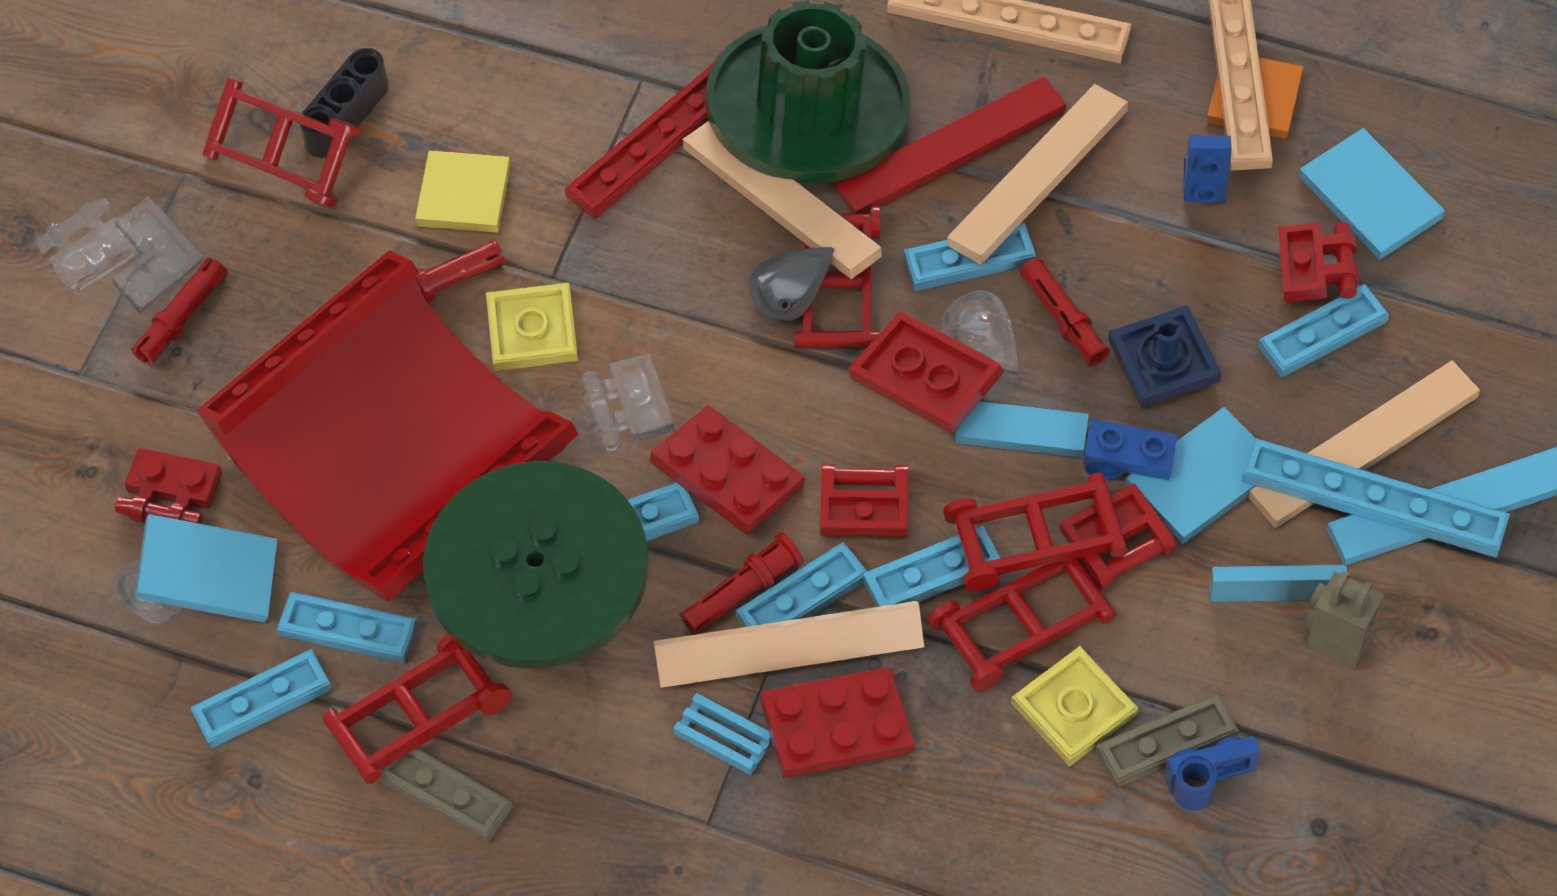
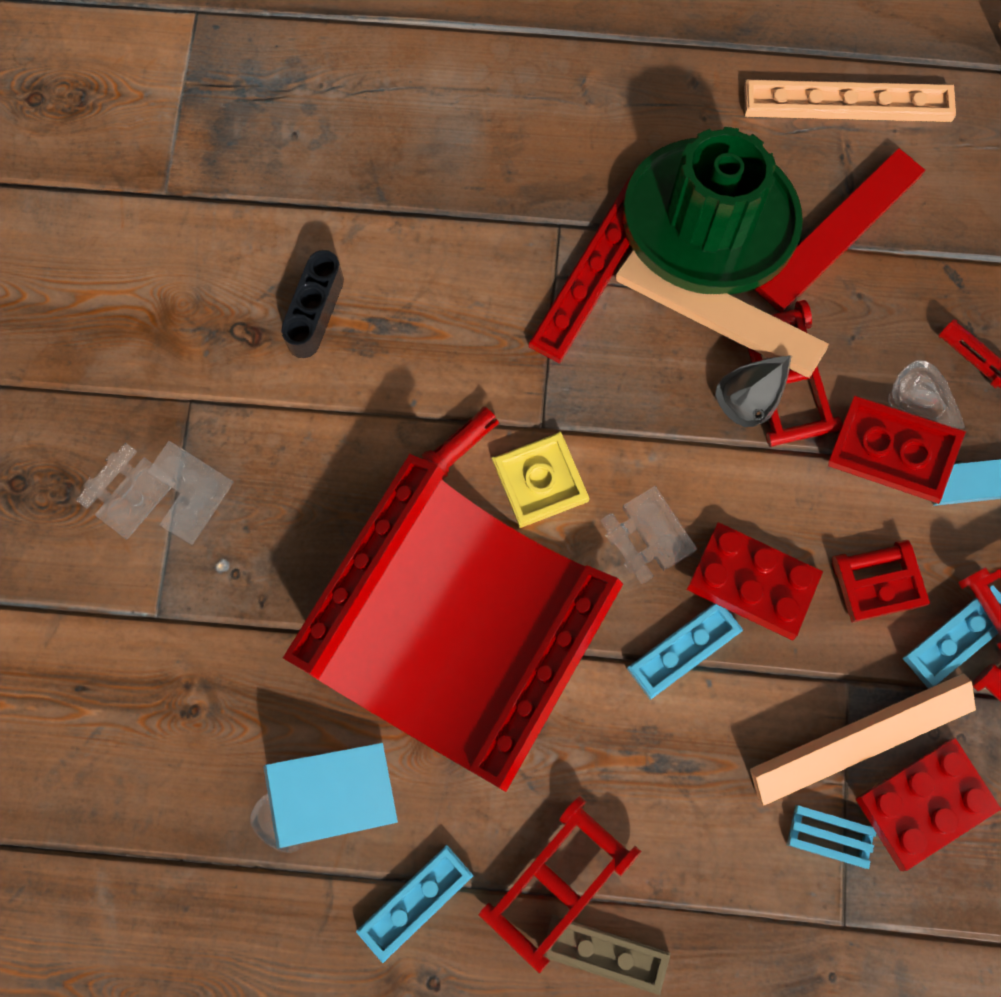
camera: 15 degrees left, 15 degrees up
(169, 323) = (222, 552): red pin -> none
(171, 479) = (269, 703): red plate -> none
(339, 130) = (324, 338): red piece -> none
(347, 627) = (469, 812): medium azure tile -> none
(463, 191) = (441, 364): light yellow tile -> none
(536, 564) = (691, 734): dark green piece -> none
(757, 573) = (812, 676): red pin -> none
(806, 590) = (855, 682): medium azure tile -> none
(941, 265) = (889, 328): medium azure tile -> none
(1037, 174) = (925, 242): light nougat tile -> none

